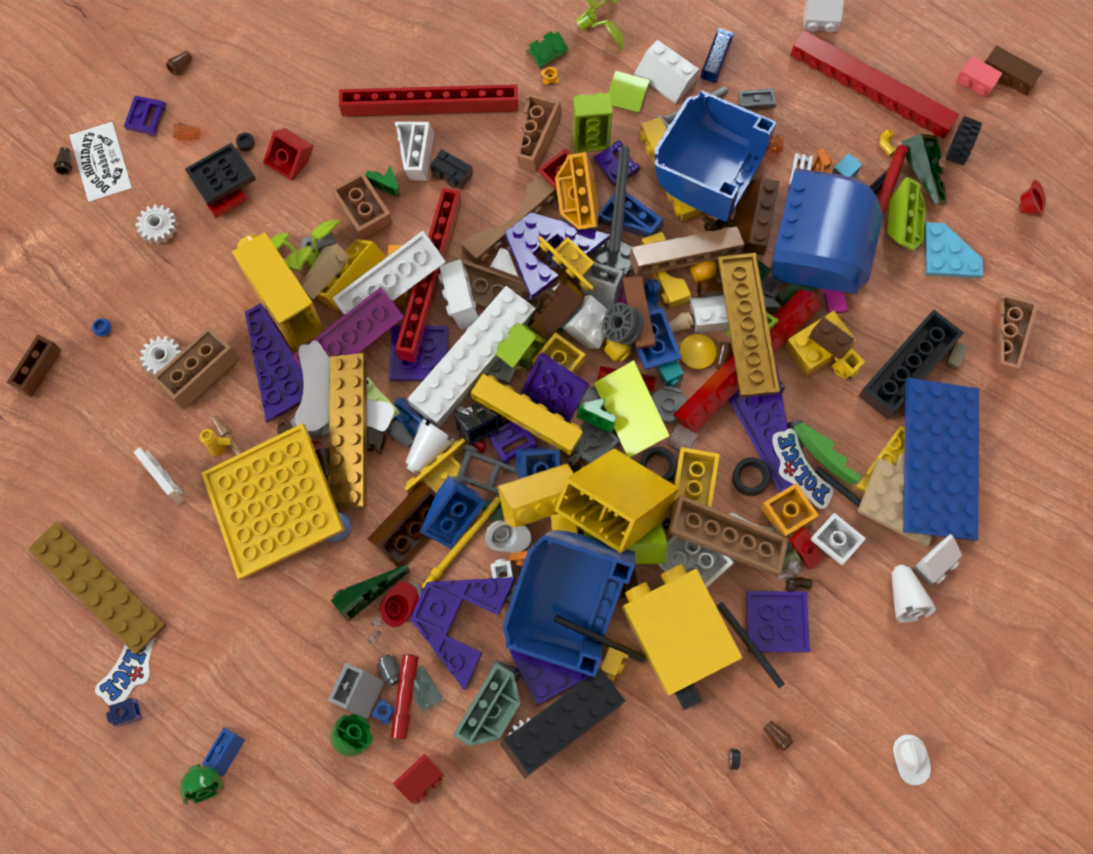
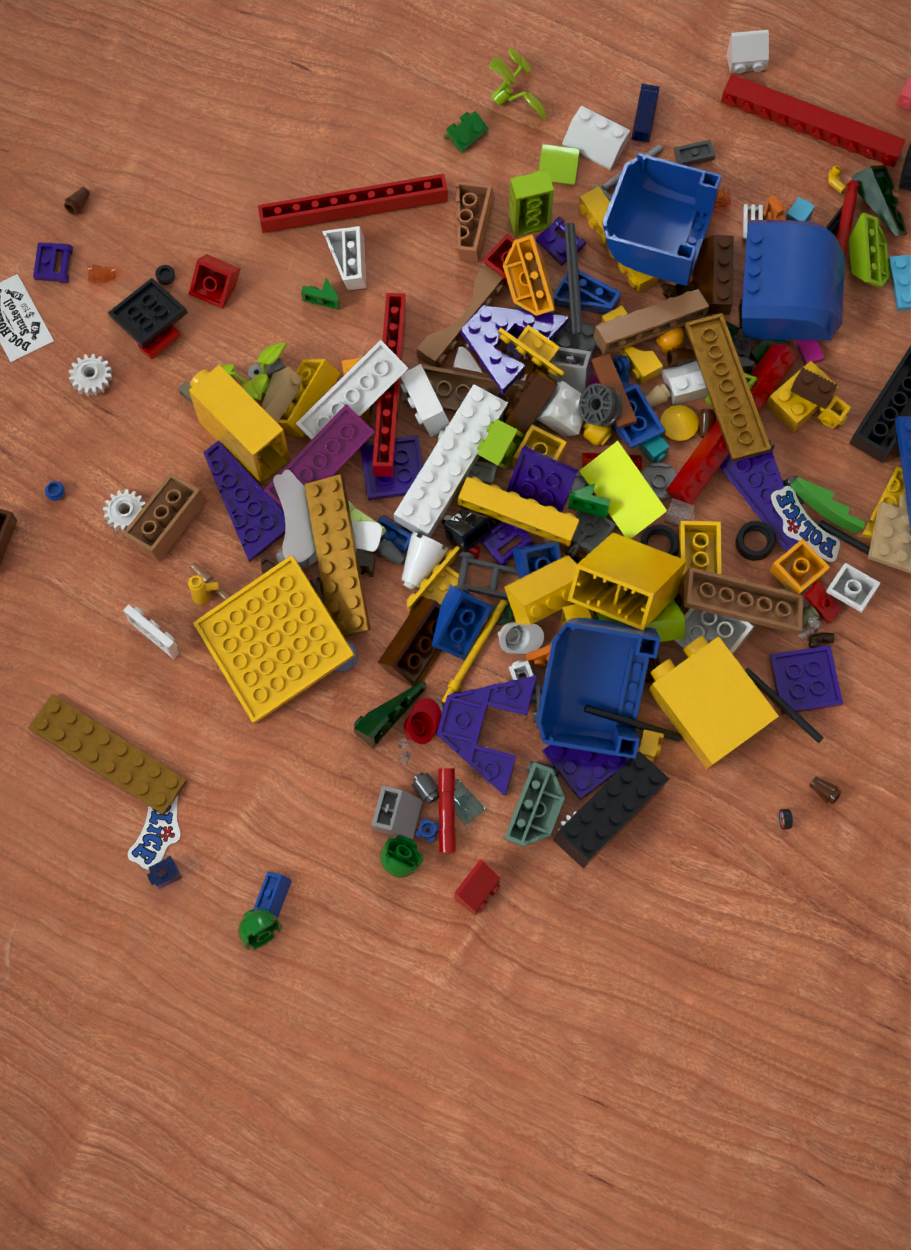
camera: 10 degrees left, 0 degrees up
(362, 206) = (304, 324): nougat brick -> none
(451, 170) = (389, 273): black brick -> none
(550, 71) = (474, 154): light orange plate -> none
(688, 697) = (729, 766): black plate -> none

